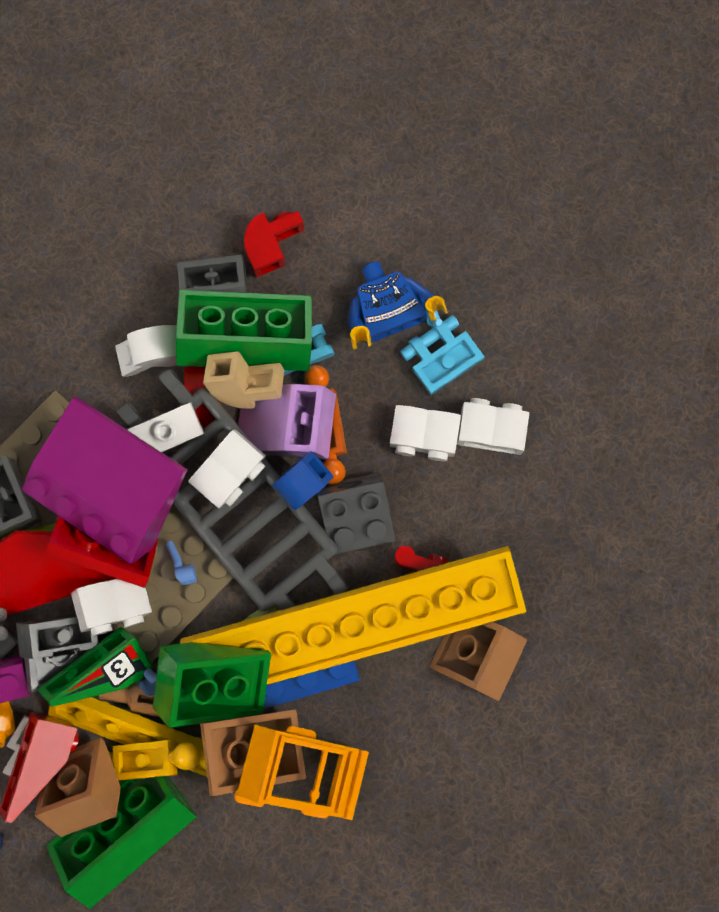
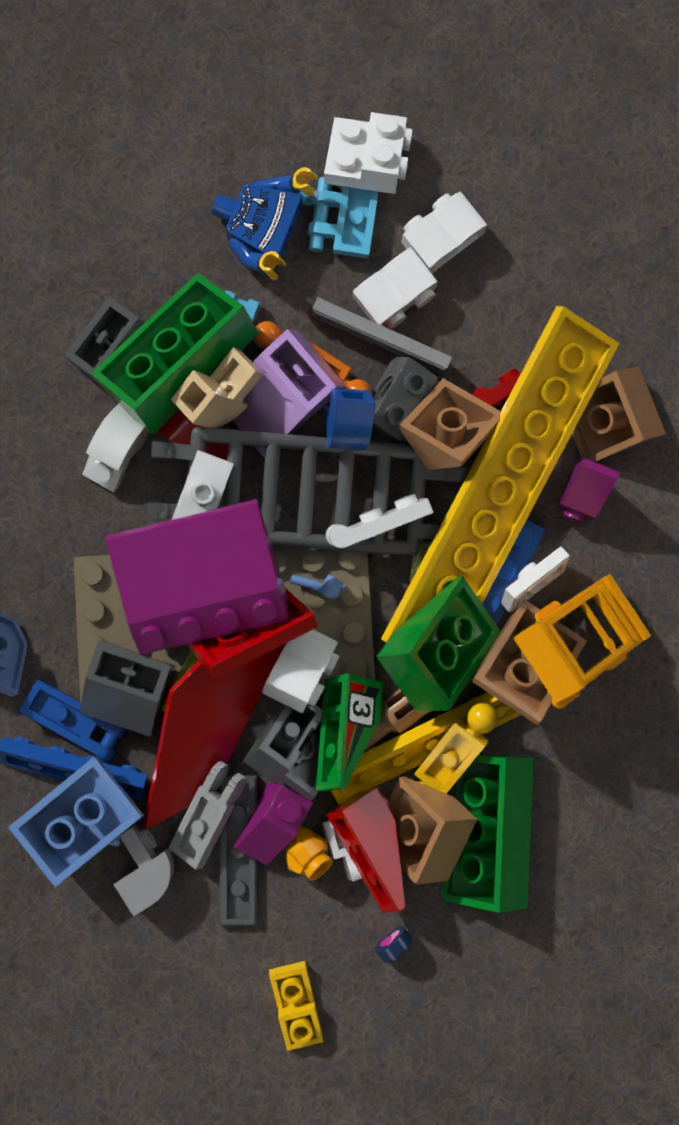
camera: 50 degrees left, 5 degrees up
(148, 685) = (394, 695): medium blue hand -> none
(227, 469) = (282, 470): white brick -> none
(254, 563) = (376, 522): none -> white plate
(262, 240) = (108, 269): red brick -> none
(317, 704) = (535, 578): none -> white plate
(363, 550) = (448, 426): none -> medium nougat slope
(385, 452) = (380, 336): none -> light grey tile
(407, 684) = (586, 490): none -> magenta slope
(497, 330) = (368, 153): none -> white plate

